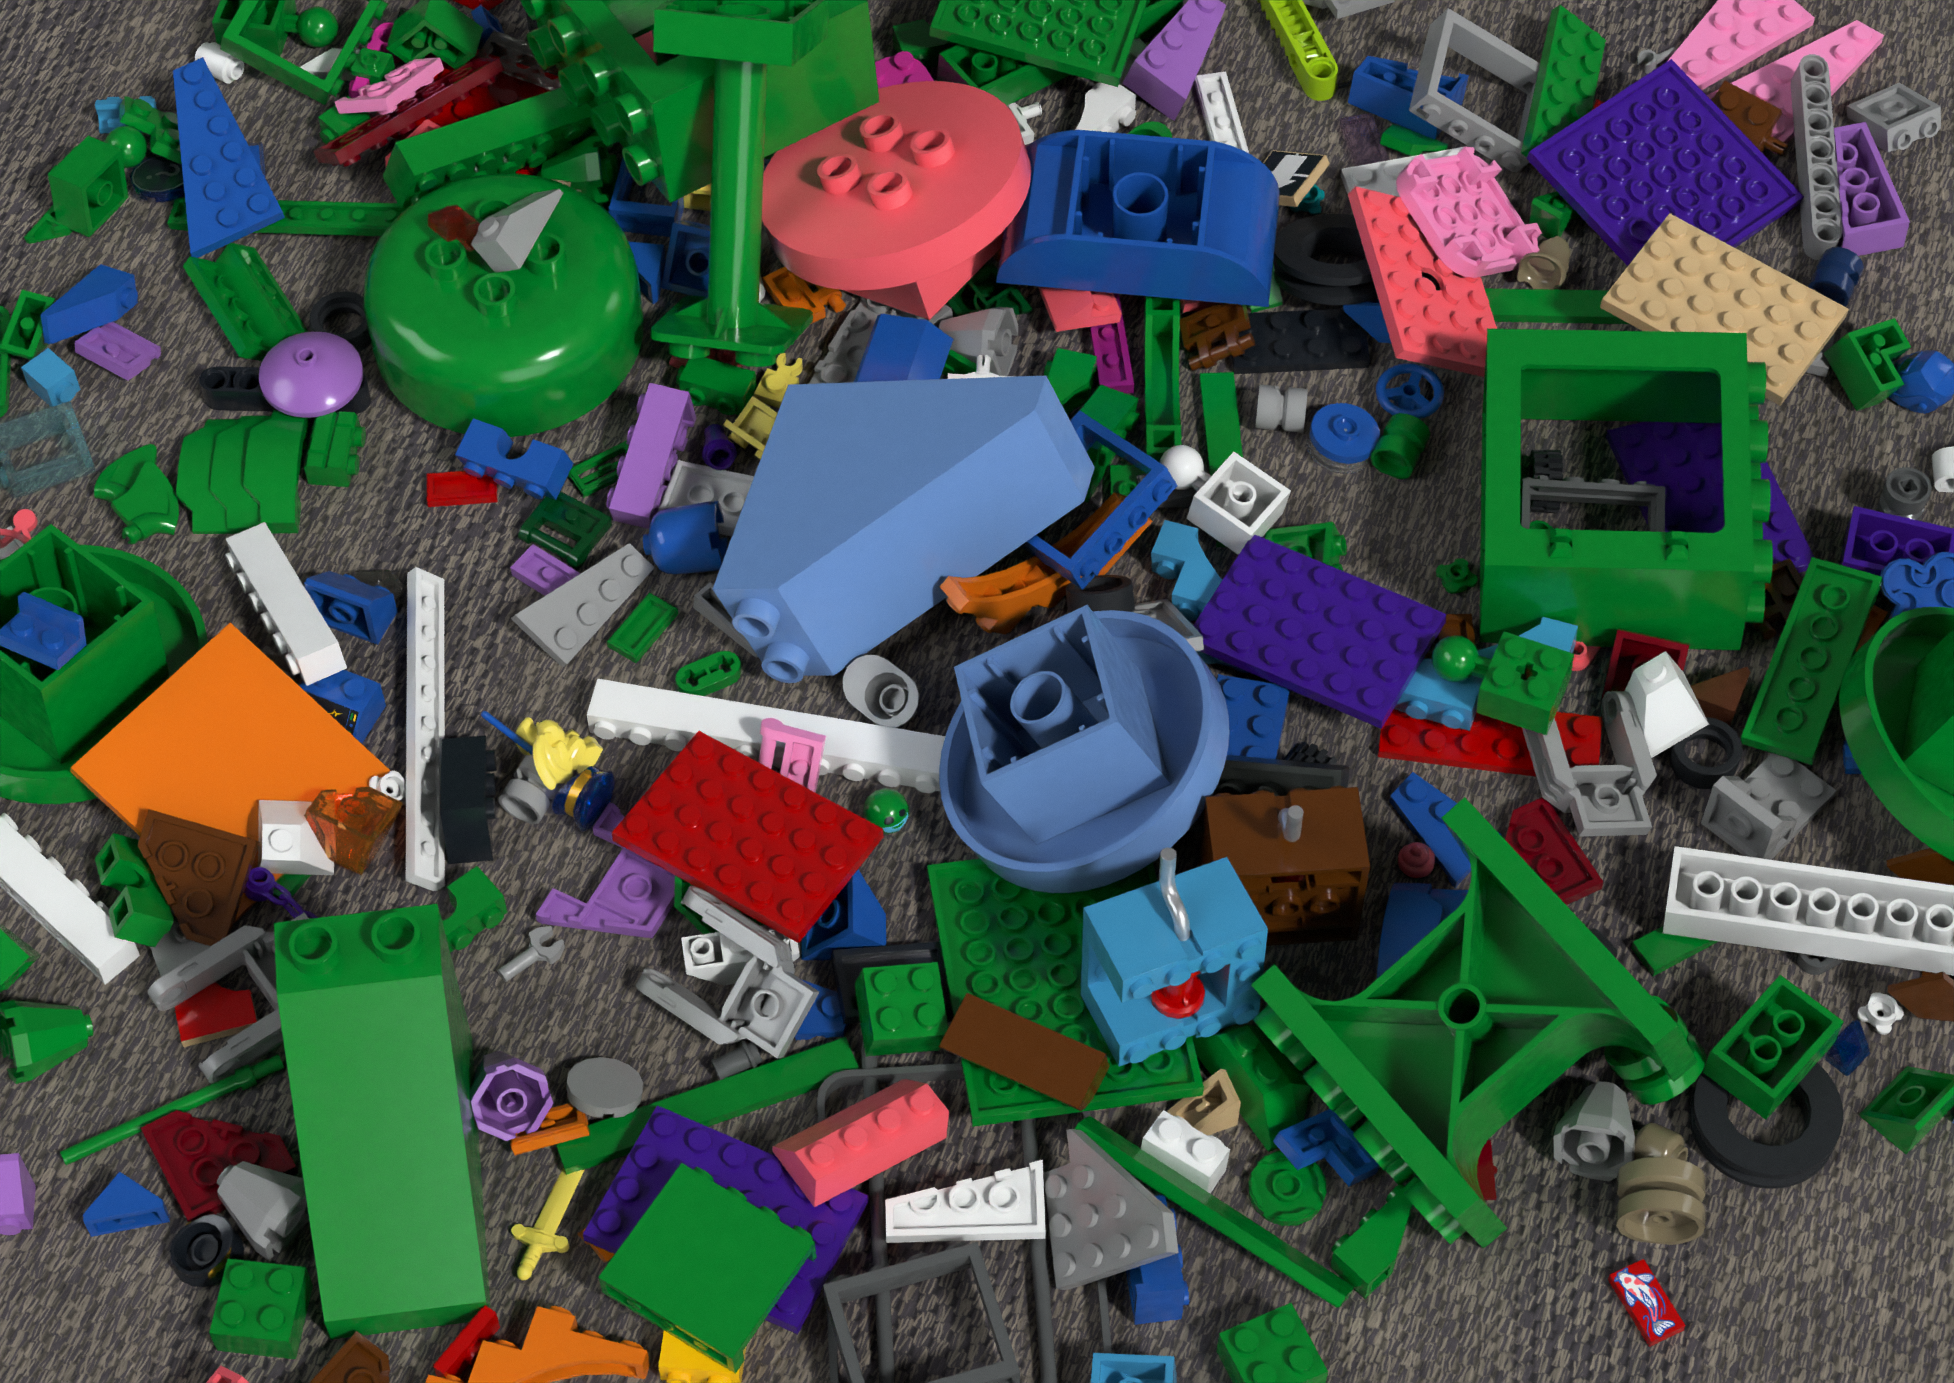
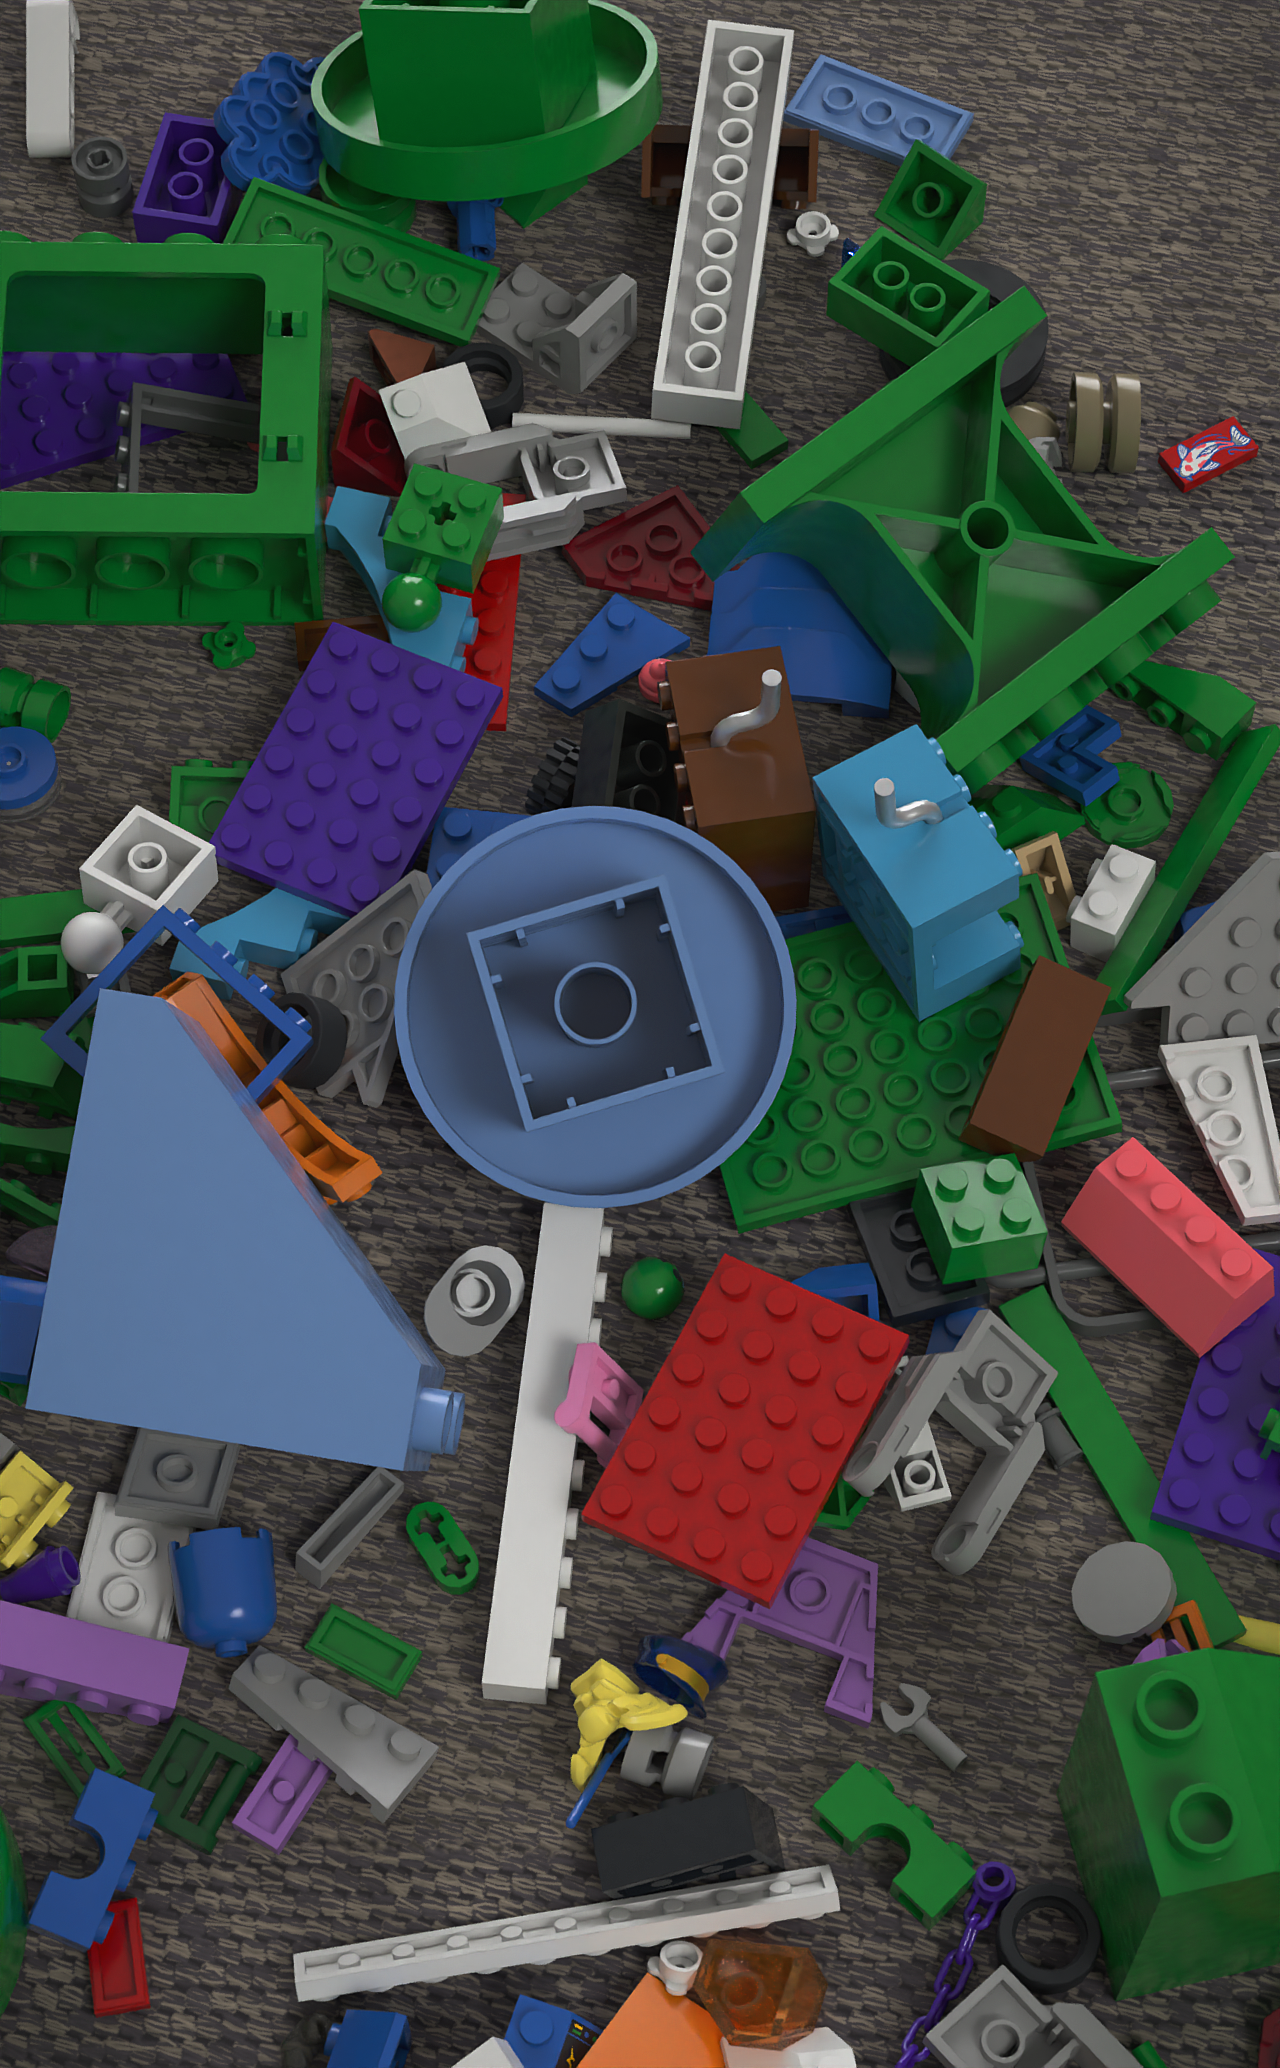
camera: 95 degrees left, 5 degrees up
(1672, 829) = (611, 425): none -> white bar

